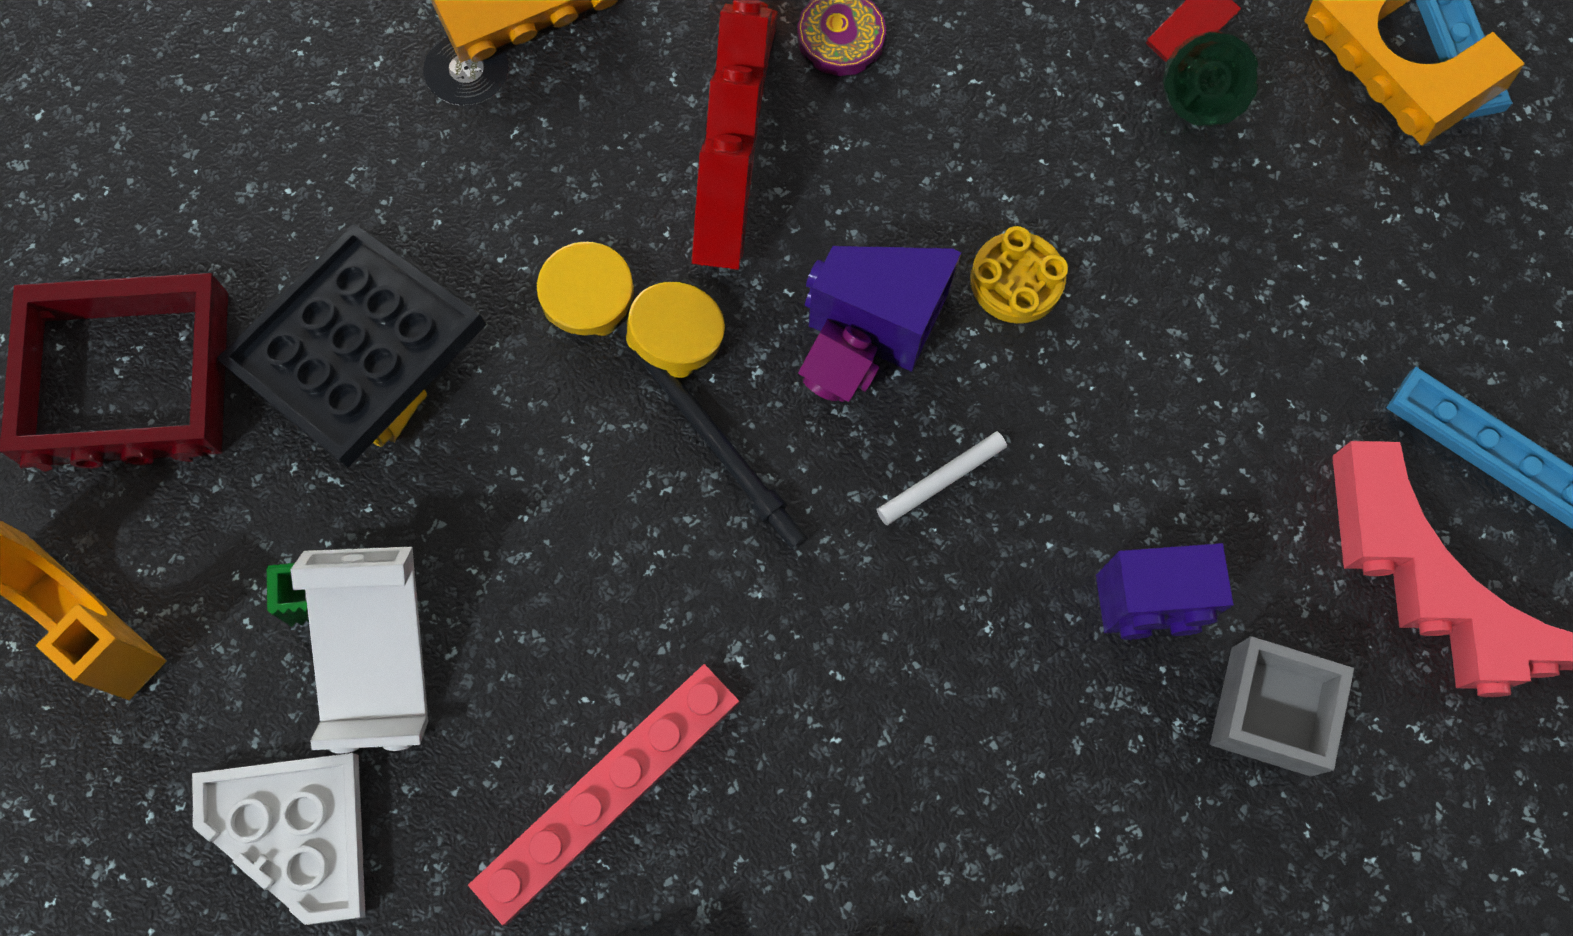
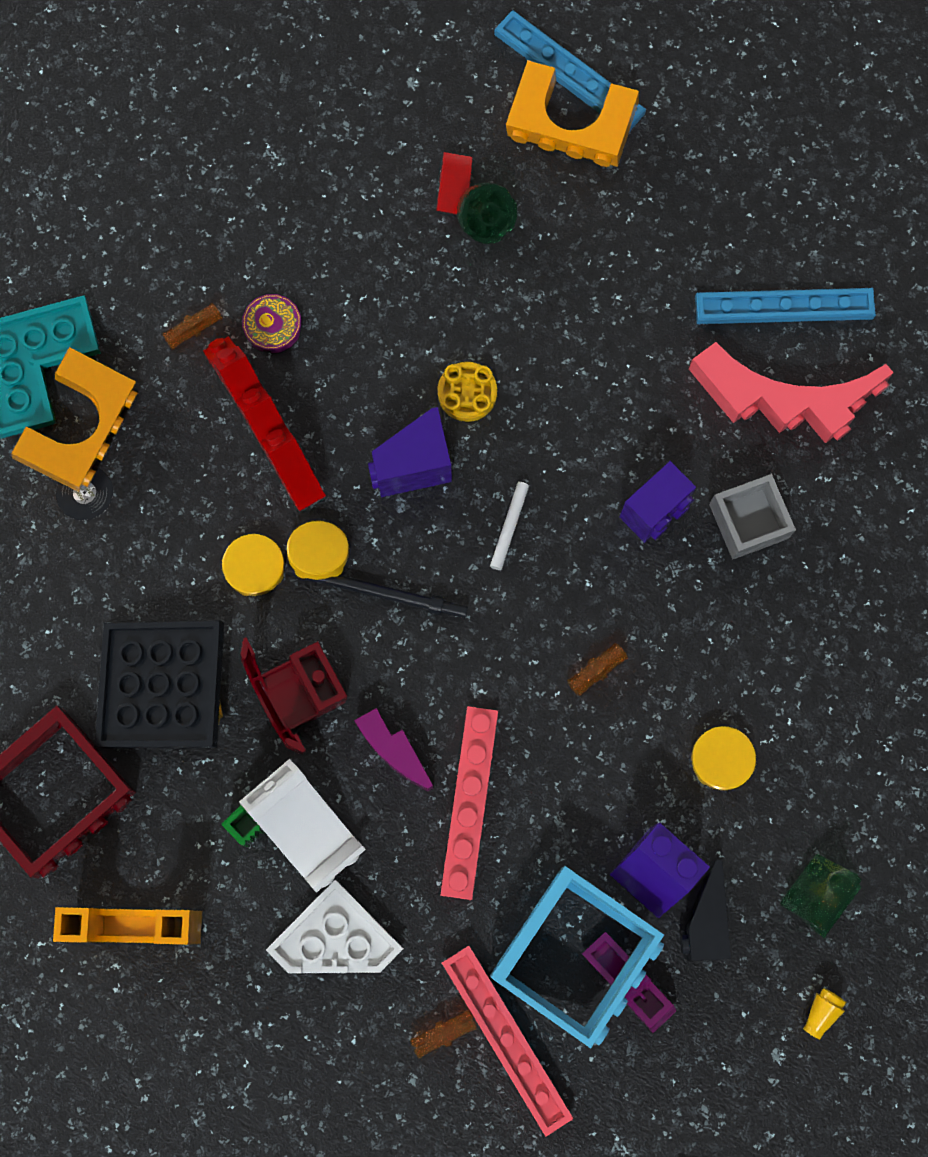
camera: 35 degrees left, 5 degrees up
(502, 473) = (294, 690): none -> dark red piece
(565, 644) = (393, 749): none -> magenta slope
(839, 362) = (415, 506): magenta brick -> none
(913, 749) = (597, 669): none -> clear orange pin

